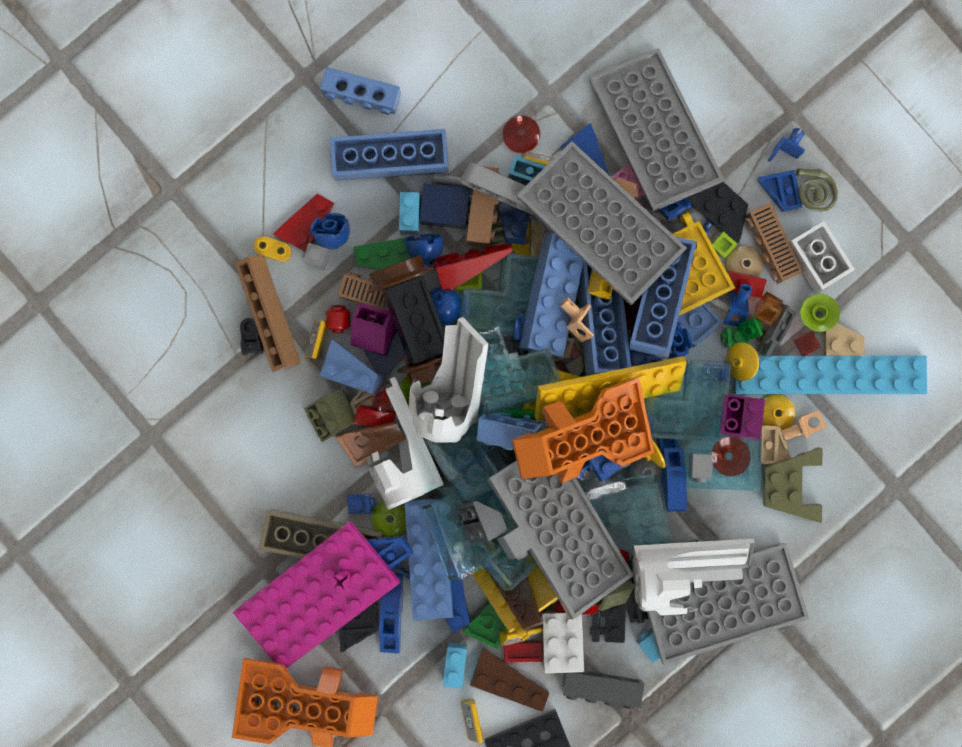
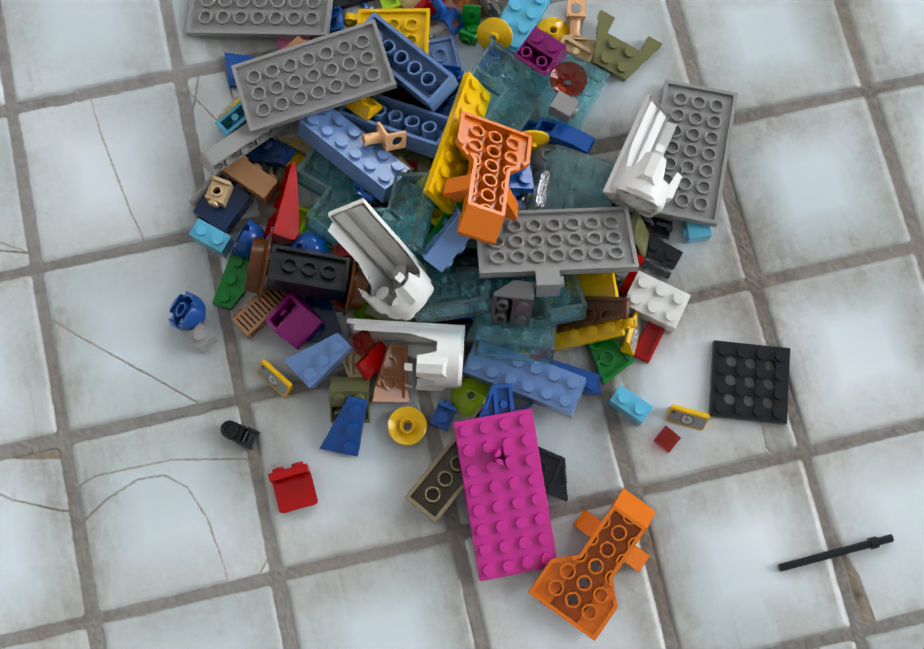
camera: 65 degrees left, 10 degrees down
(230, 408) = (293, 487): none -> red bracket
(267, 313) = (227, 406): medium nougat brick -> none
(272, 248) = (174, 377): yellow plate -> none
(297, 228) = (168, 341): red wing -> none
(302, 428) = (347, 428): none -> blue wing
(324, 480) = (400, 418): none -> yellow dish
(334, 78) = (79, 215): medium blue brick -> none
(338, 318) = (268, 348): red head -> none
(389, 154) = (150, 228): medium blue brick -> none
(390, 619) = (562, 440): blue slope -> none
(443, 712) = (666, 439): none -> clear red plate
(457, 200) = (220, 199): none -> tan brick
(504, 681) = (667, 370): reddish brown wing -> none
(517, 142) = (199, 121): clear red dish -> none
(603, 688) = (712, 290): dark grey brick -> none

